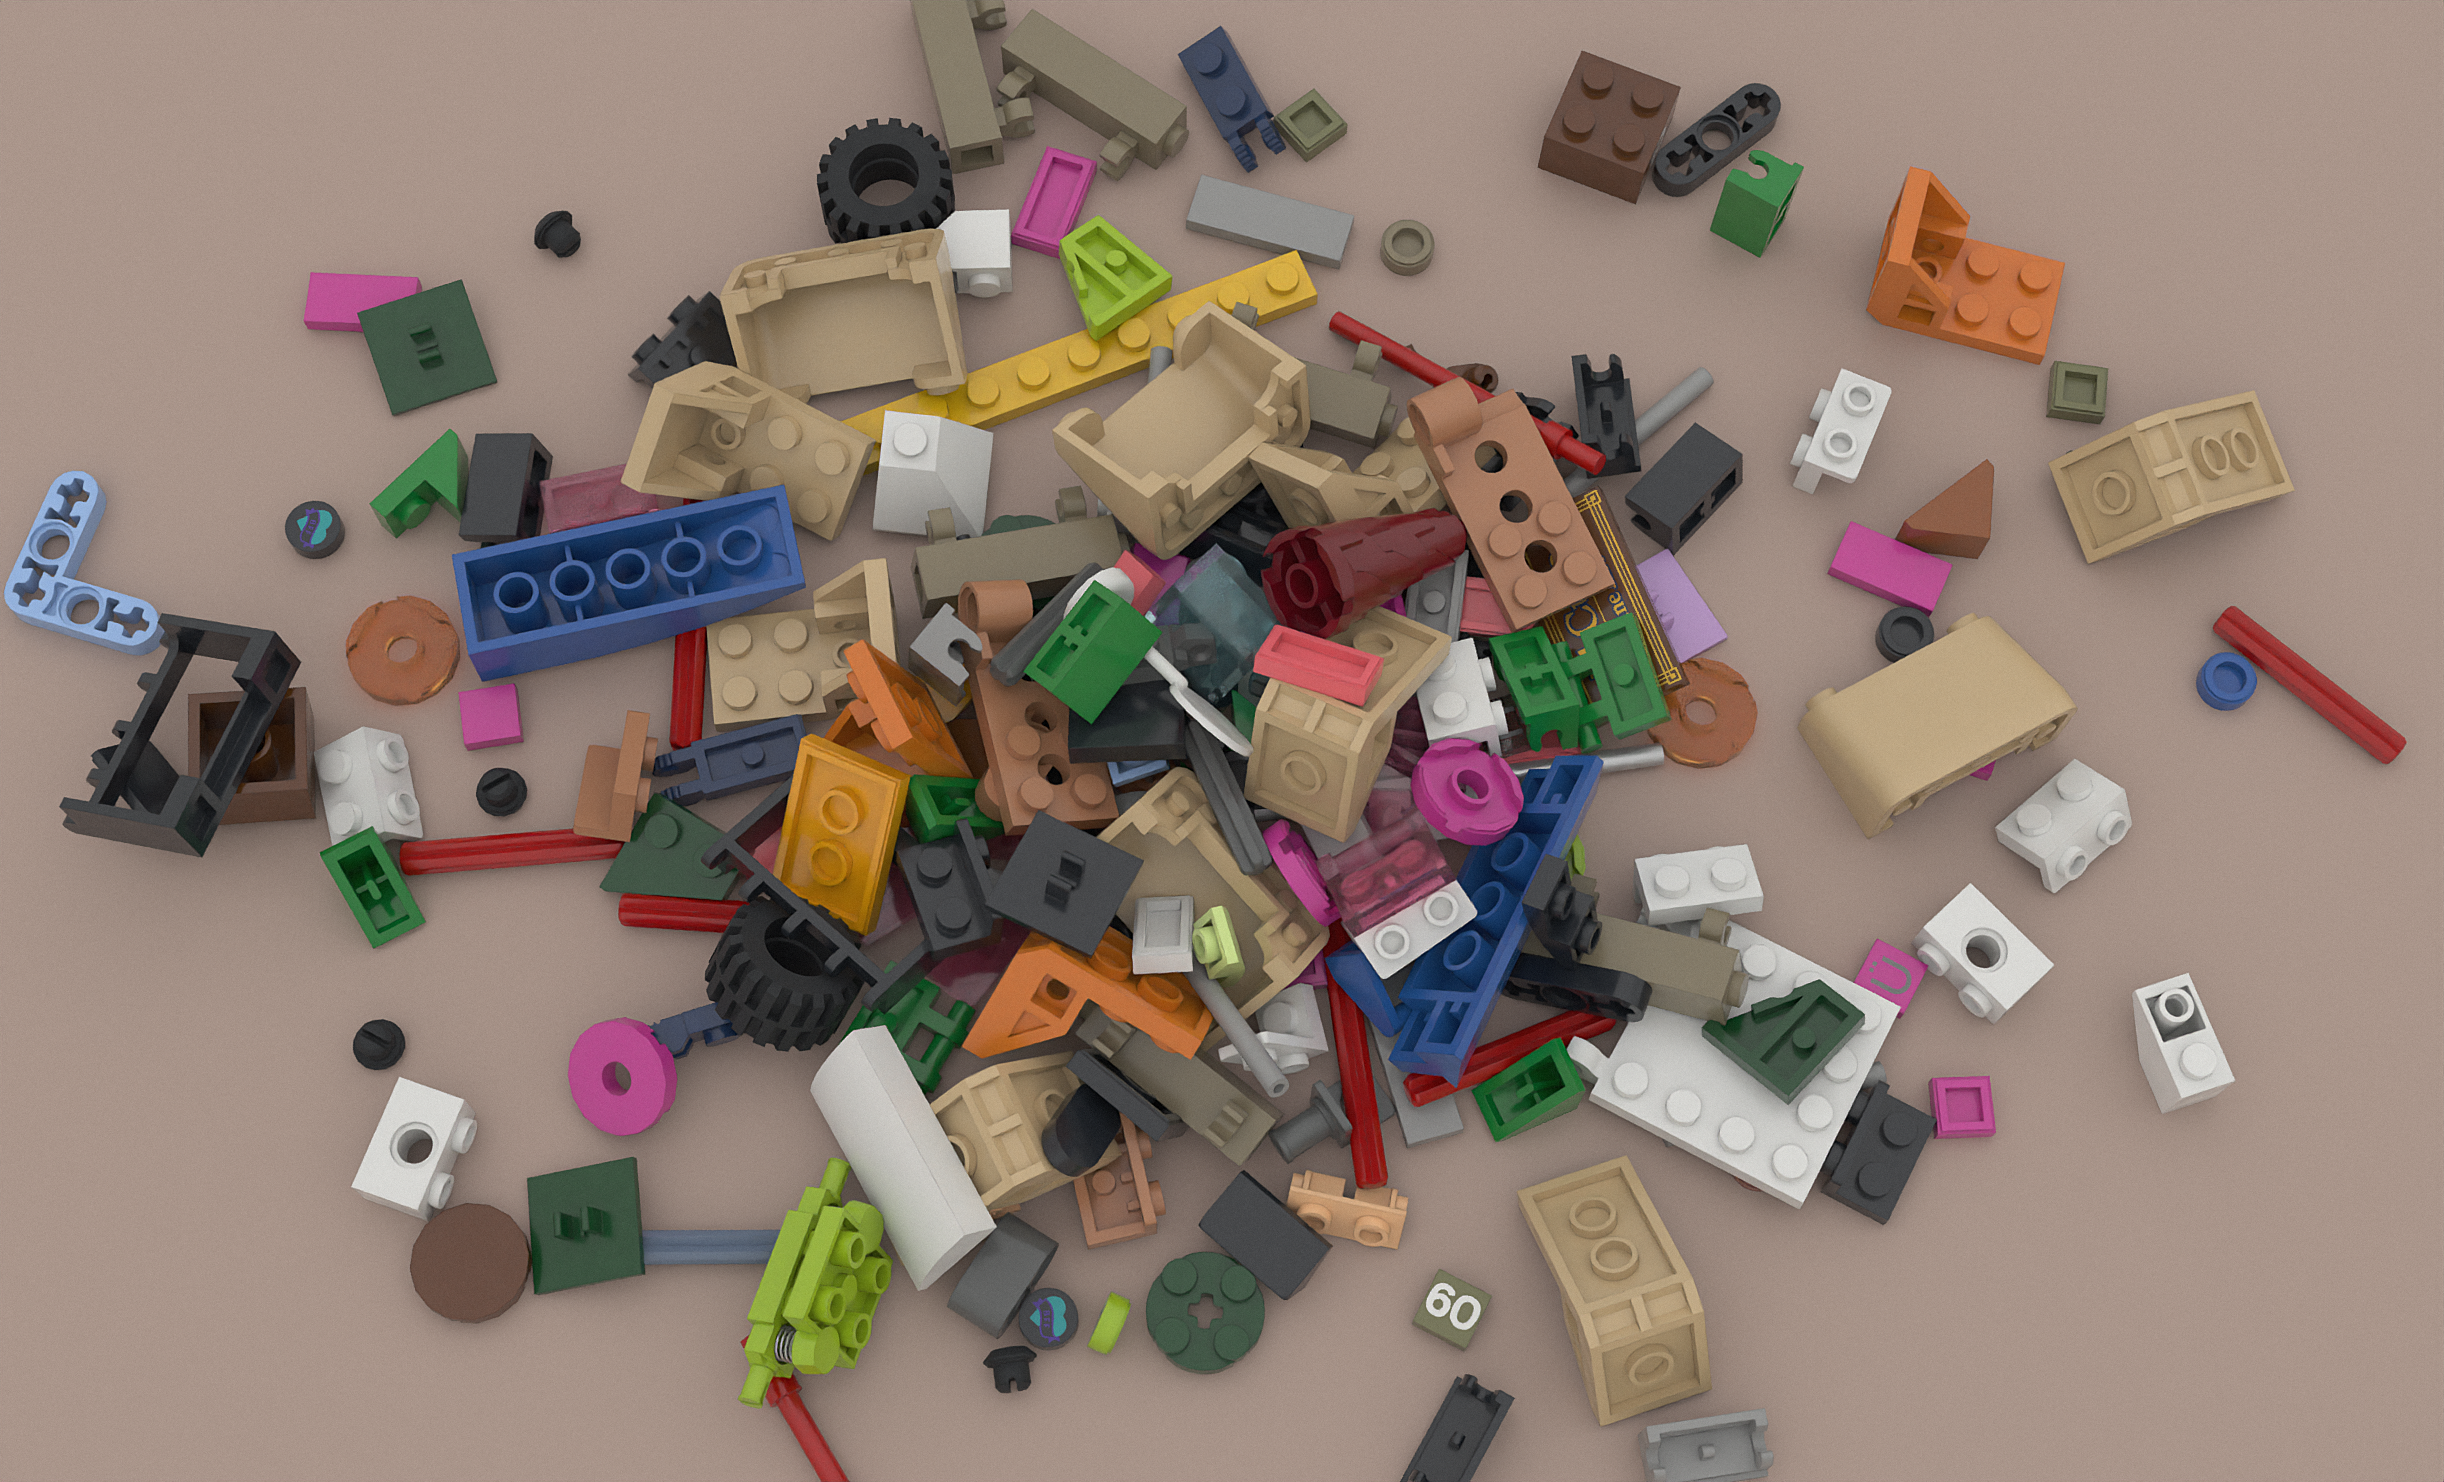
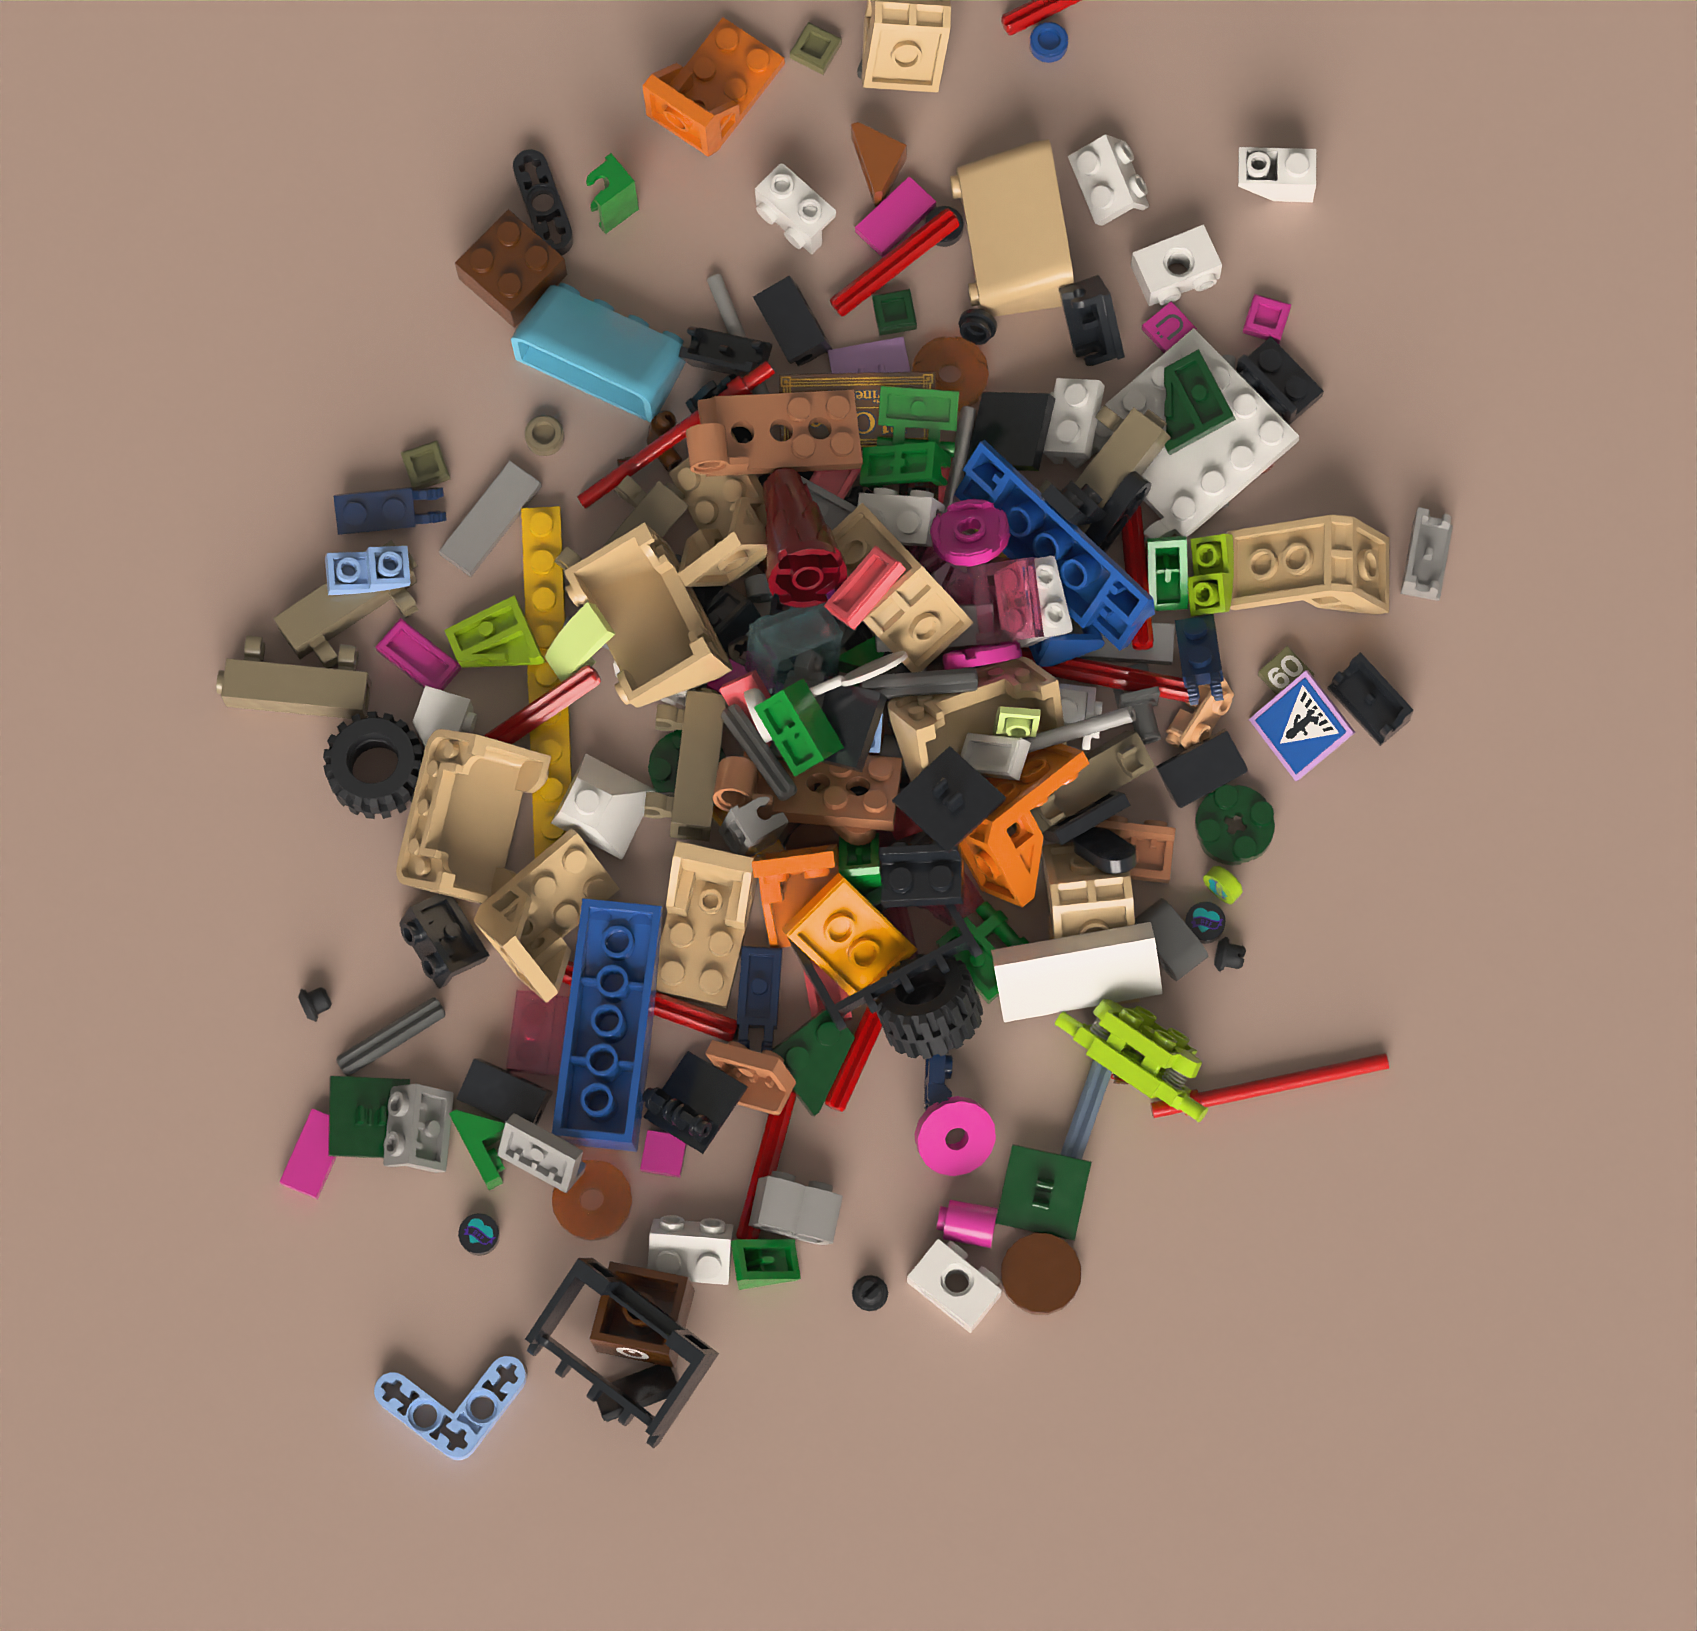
camera: 65 degrees left, 5 degrees up
(421, 406) = (418, 1127): none -> light grey bracket
(425, 557) = (541, 1153): none -> light grey bracket
(456, 903) = (795, 1209): none -> light grey brick
(501, 791) = (720, 1162): black piece -> none
(508, 1138) = (967, 1223): none -> dark pink brick
(543, 338) = (390, 1036): none -> dark grey axle
(565, 725) = (693, 1102): none -> black hinge
(1028, 355) = (546, 706): none -> red axle
(1129, 360) = (579, 641): none -> yellowish green slope
(1131, 87) = (367, 571): none -> light blue slope
(1380, 1355) = (1301, 725): none -> piece
(1422, 1176) = (1199, 656): none -> dark blue hinge
(1539, 1161) = (1213, 576): none -> lime slope
(1545, 266) = (599, 351): none -> medium azure windscreen
(1651, 814) = (1014, 426): none -> black tile
(1756, 613) = (894, 312): none -> dark green tile
(1780, 721) = (977, 326): none -> black plate
(1824, 586) = (894, 262): none -> red axle
(1848, 861) = (1091, 321): none -> black hinge

